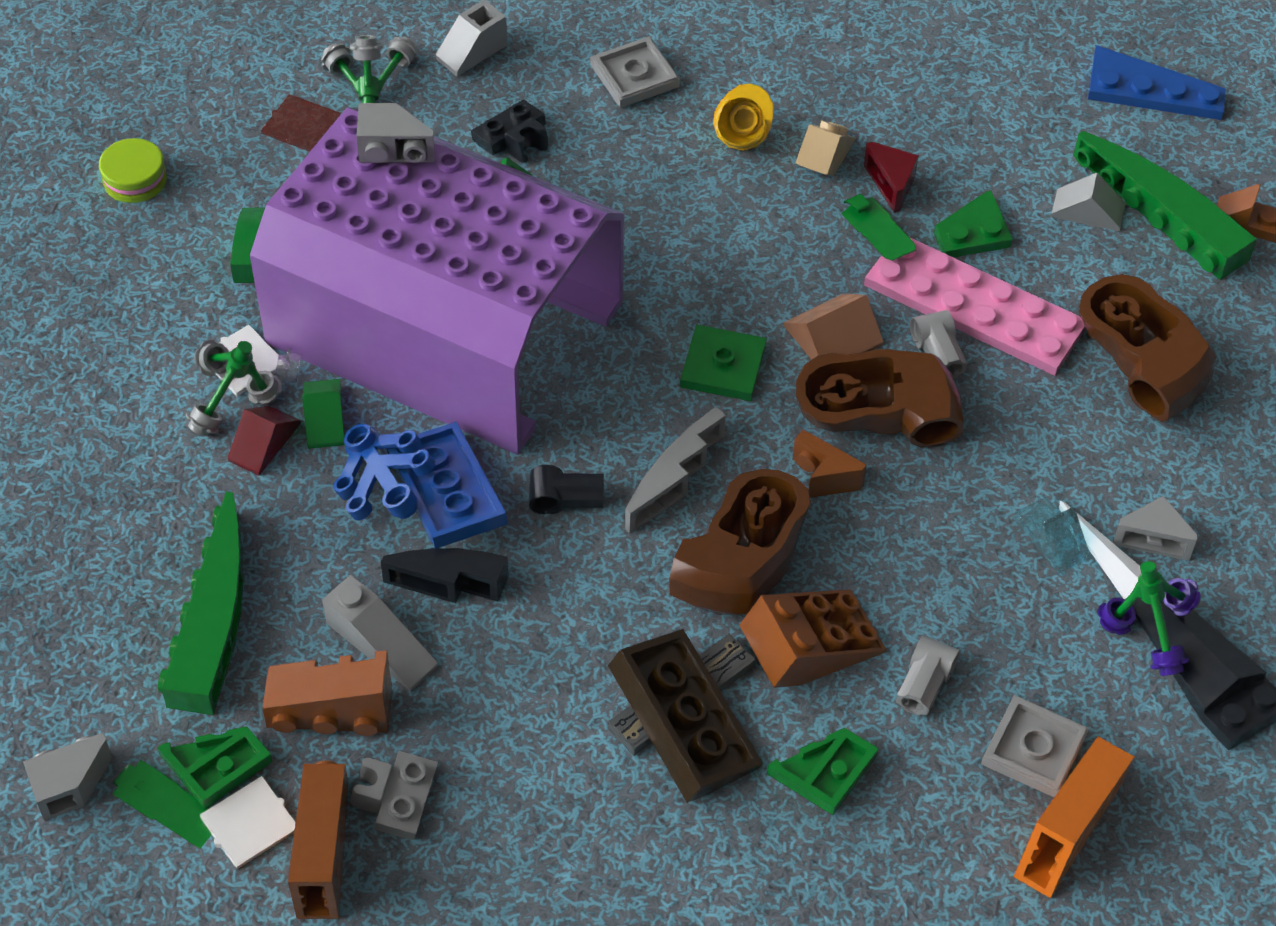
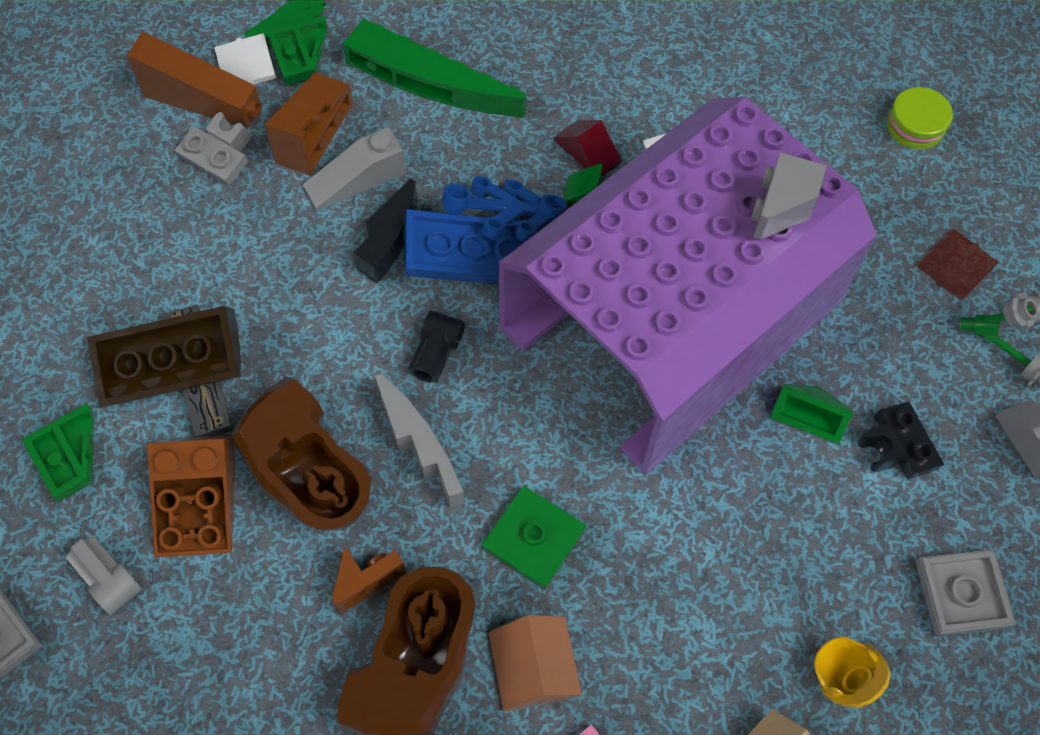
camera: 110 degrees right, 10 degrees up
(216, 358) = (619, 109): light grey plant -> none

